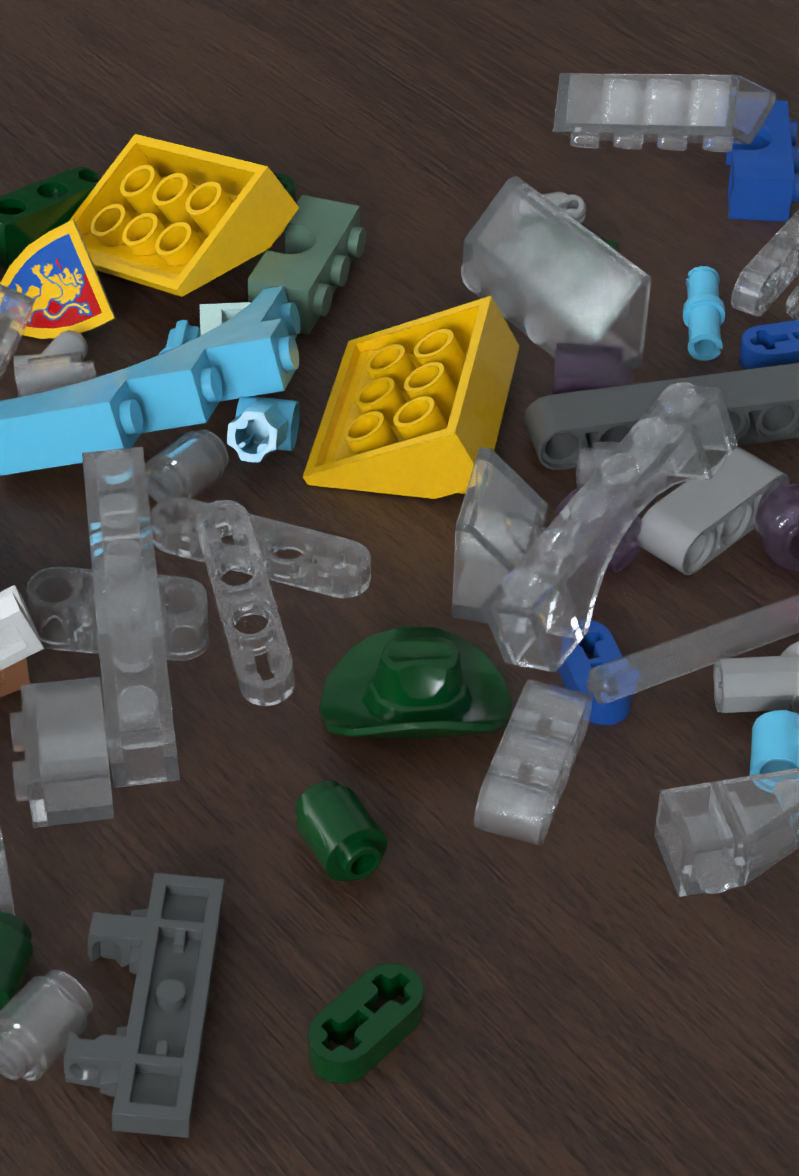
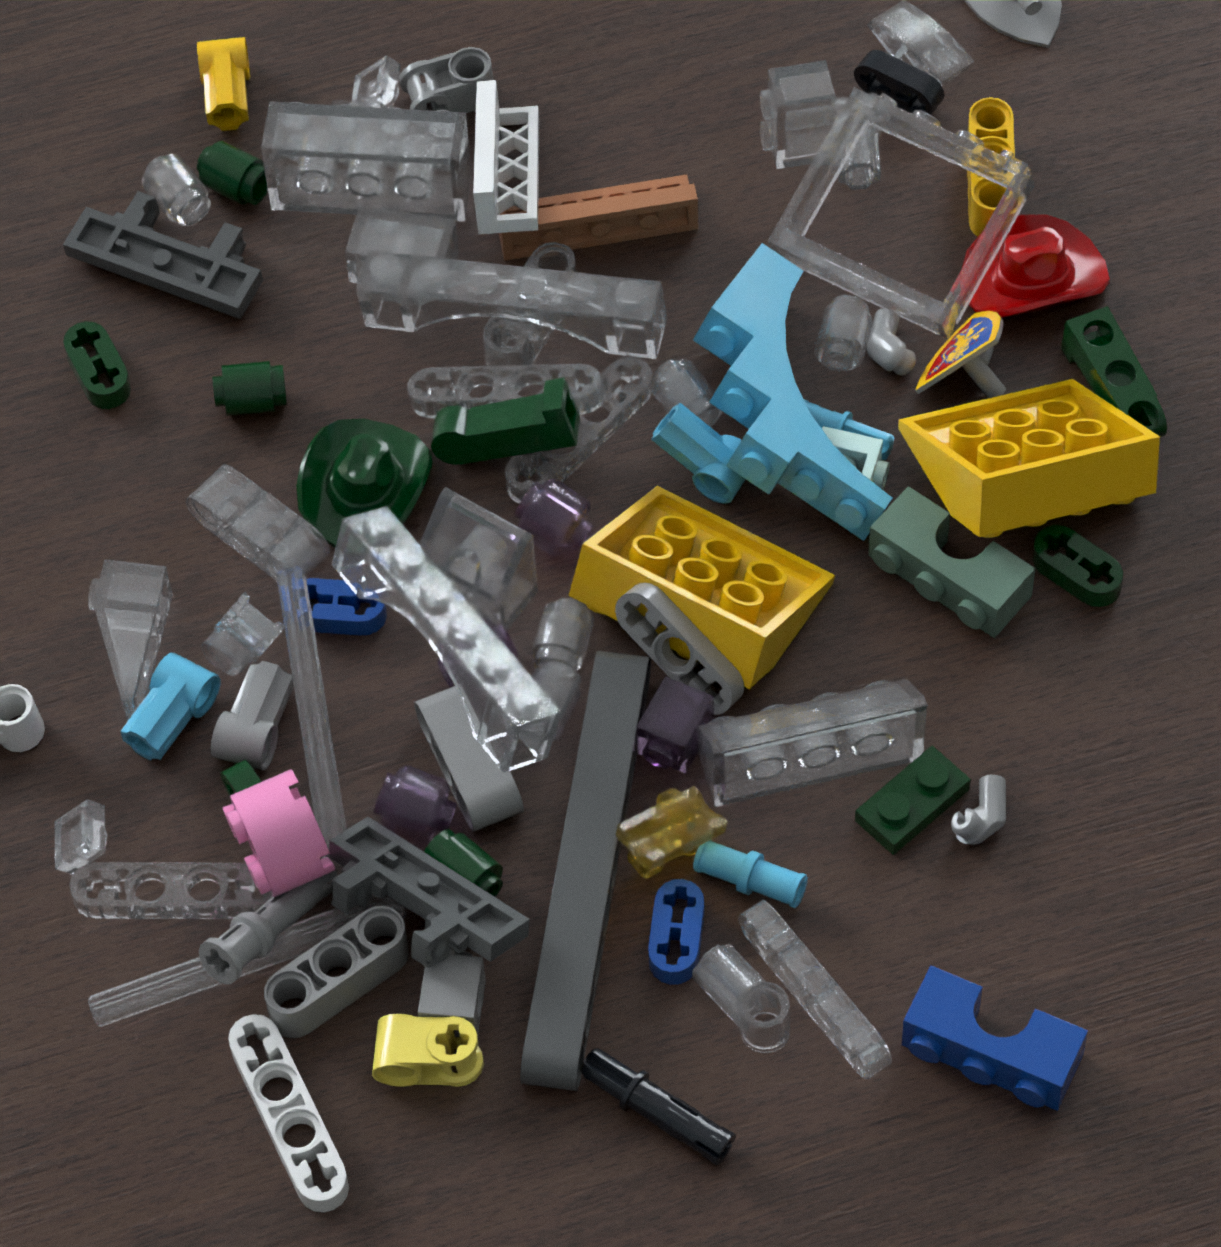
camera: 115 degrees right, 15 degrees up
(300, 568) = (507, 426): none -> dark green leg
(394, 520) = (555, 516): none -> clear purple head
(513, 380) = (678, 625): none -> light grey beam
(547, 472) = (563, 633): none -> clear brick
(660, 110) = (1078, 947): clear slope -> none
(700, 707) = (240, 637): none -> clear piece
(707, 340) = (669, 830): none -> clear yellow hips

